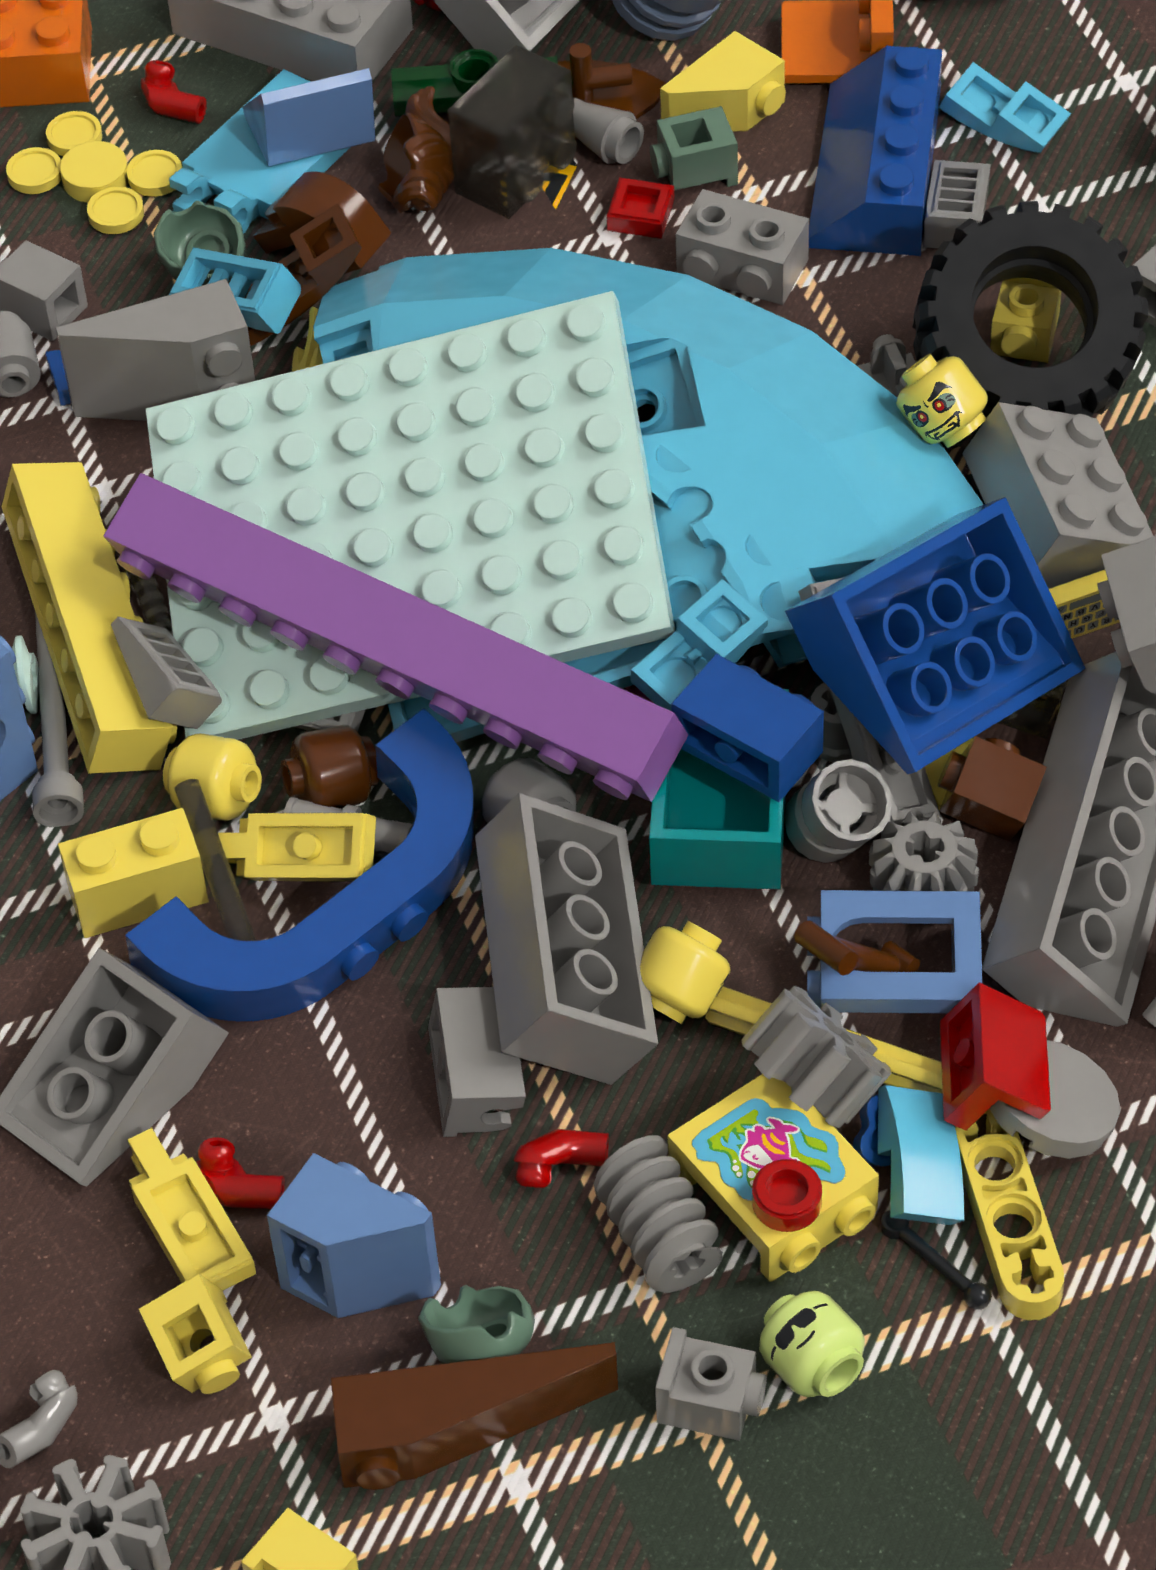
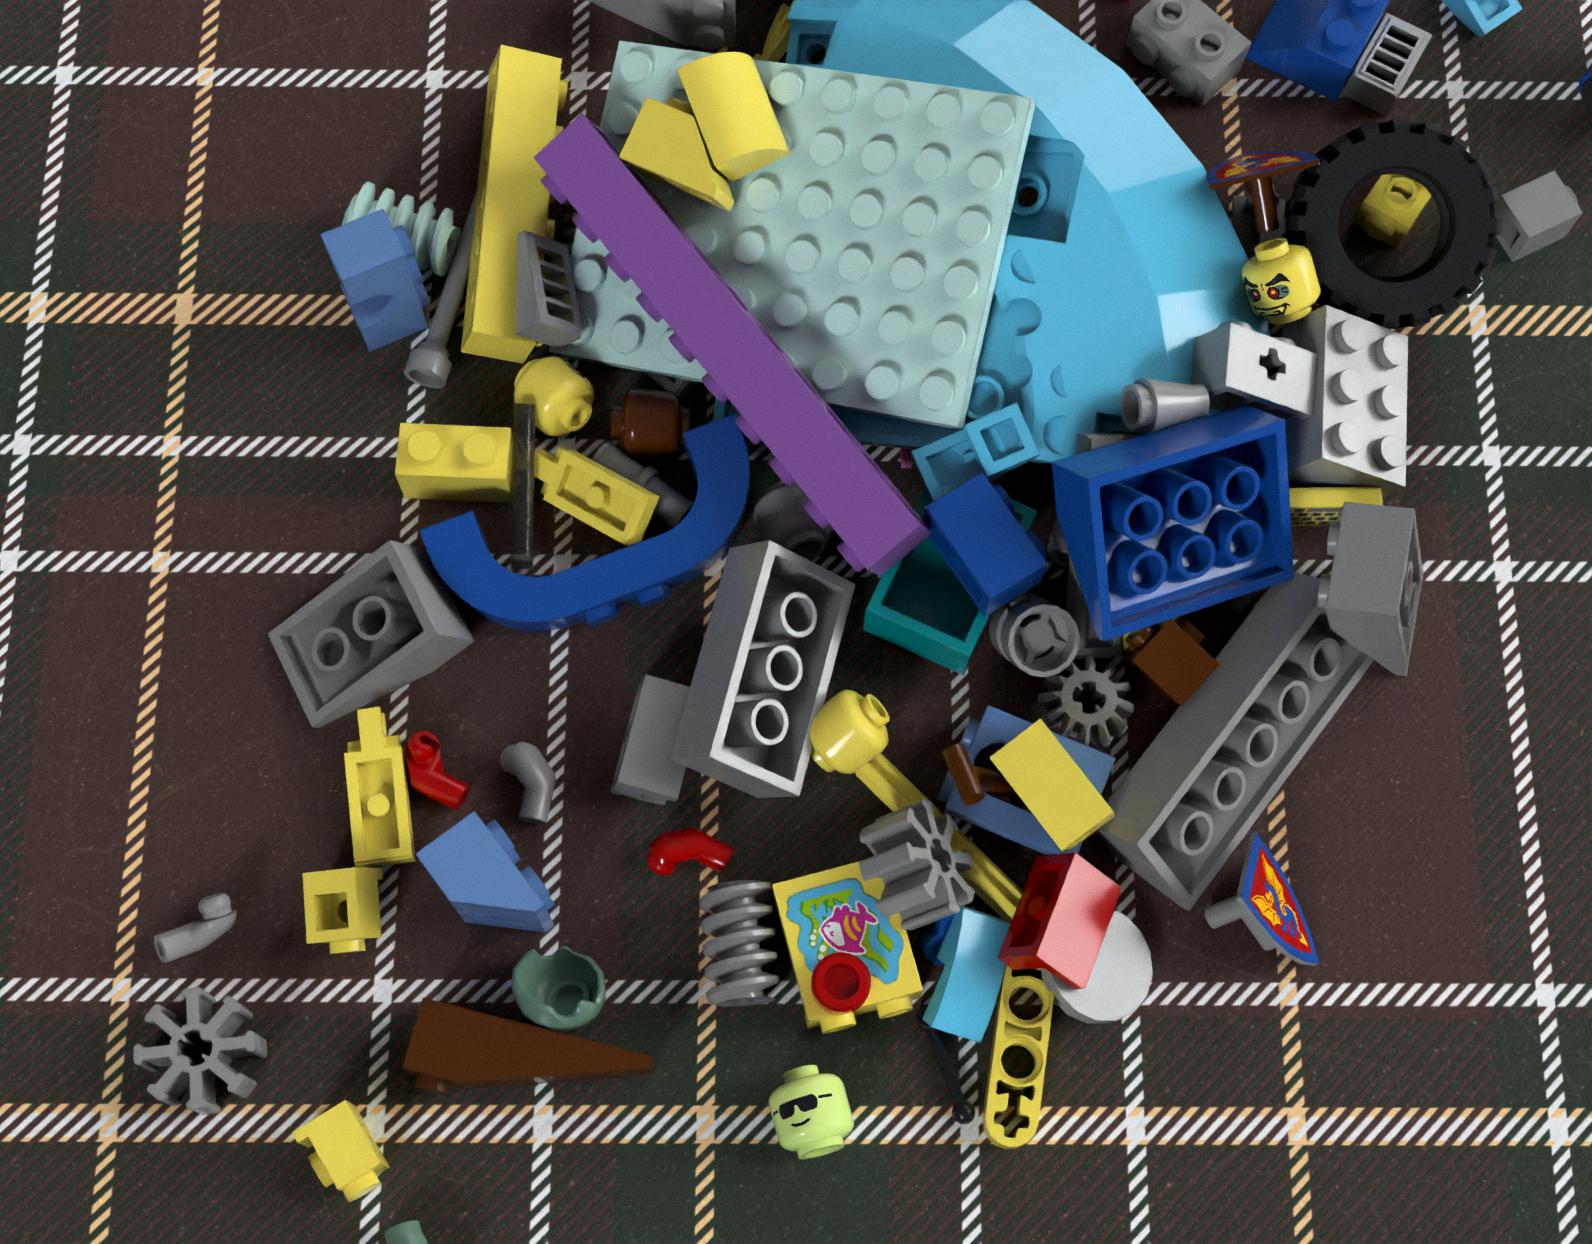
camera: 15 degrees right, 20 degrees up
(259, 478) = (672, 151): none -> light yellow slope
(304, 418) = (733, 113): none -> light yellow brick
(341, 1132) = (535, 775): none -> light grey arm
(708, 1386) = (693, 1109): light grey brick -> none
(870, 533) = (1160, 404): none -> light grey cone
(881, 329) = (1256, 172): none -> shield
(928, 923) = (1052, 786): none -> light yellow hinge
(940, 478) = (1255, 371): none -> light grey brick

